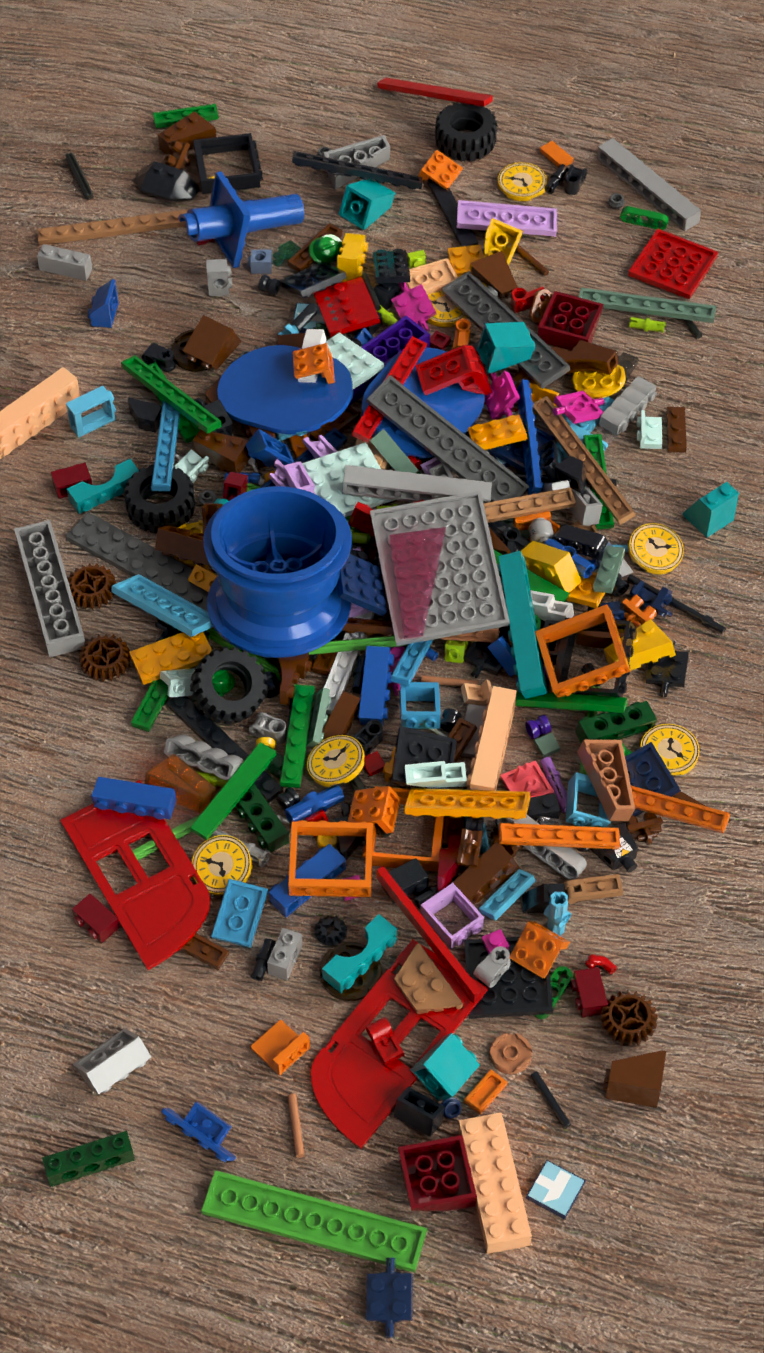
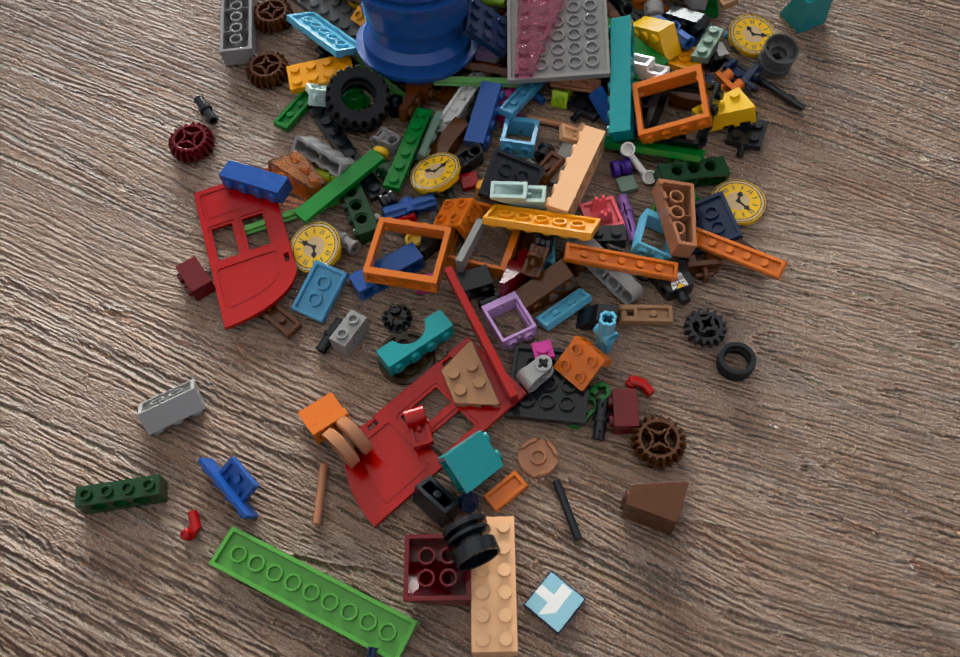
camera: 15 degrees right, 5 degrees up
(42, 752) = (191, 142): none -> dark red gear
(44, 716) = (206, 110): none -> black pin
(173, 1180) = (193, 529): none -> red arm
(316, 1066) = (349, 439): none -> nougat wheel
(395, 839) = (469, 245): none -> light grey tile
(468, 1140) = (471, 542): none -> black wheel
(543, 706) = (627, 150): none -> white bar
(567, 1004) = (600, 419): none -> black pin
(664, 899) = (714, 328): none -> black gear
(693, 567) = (777, 56): none -> dark grey wheel
(695, 910) = (739, 348): none -> black tyre

